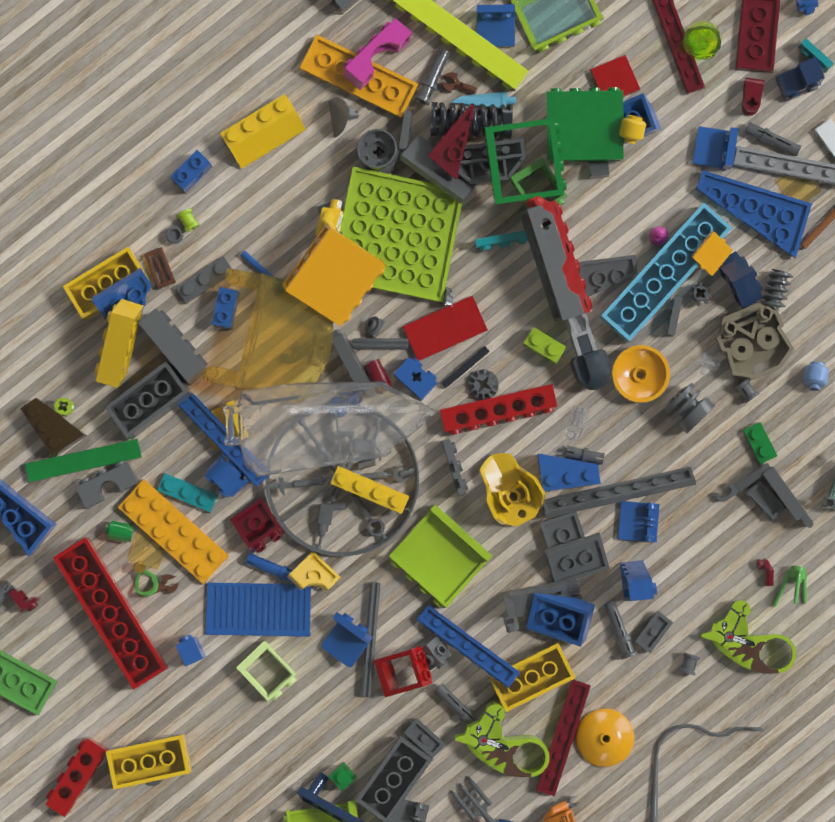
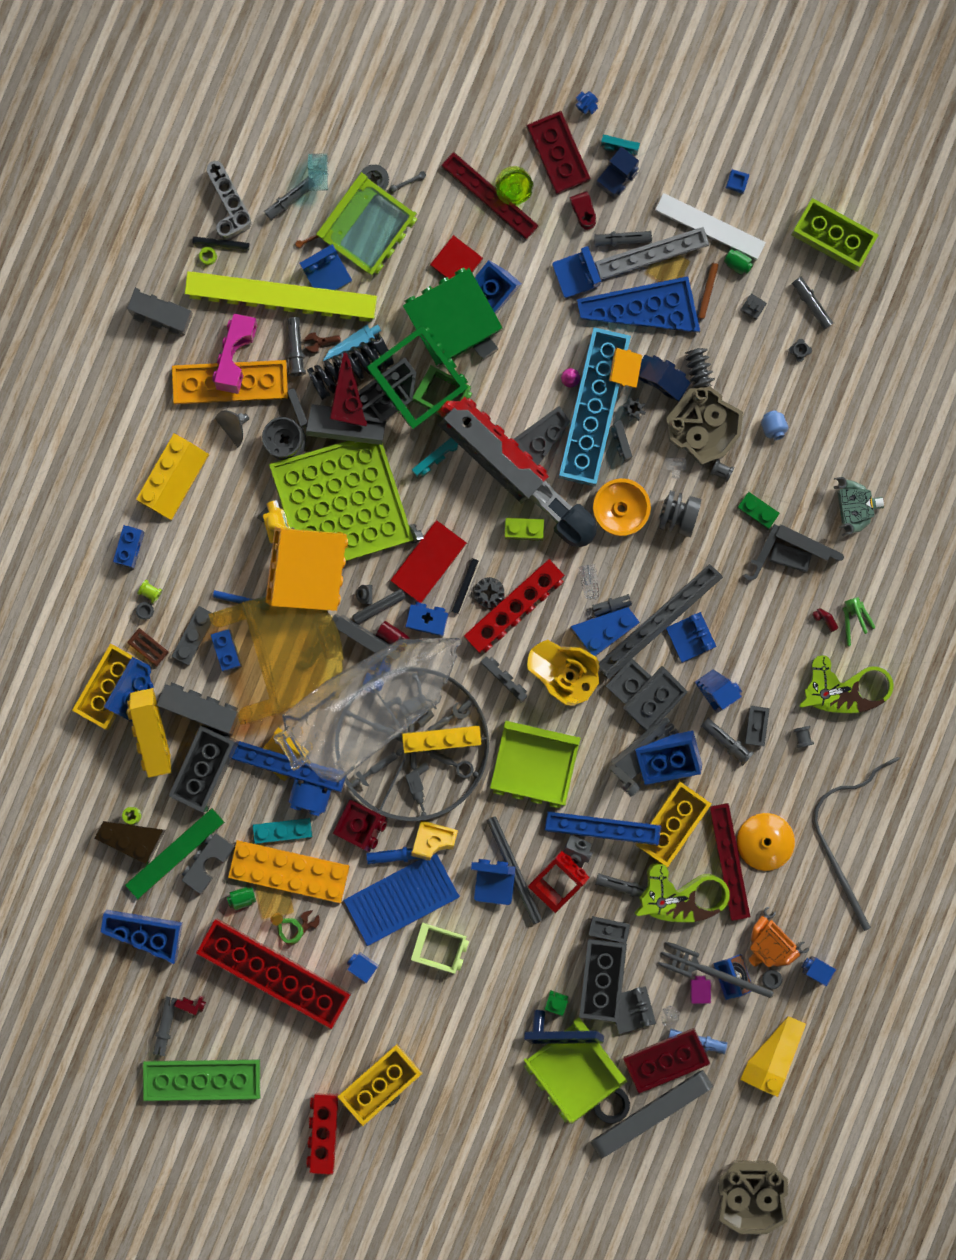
camera: 30 degrees left, 0 degrees up
(632, 129) = (496, 297): yellow head -> none

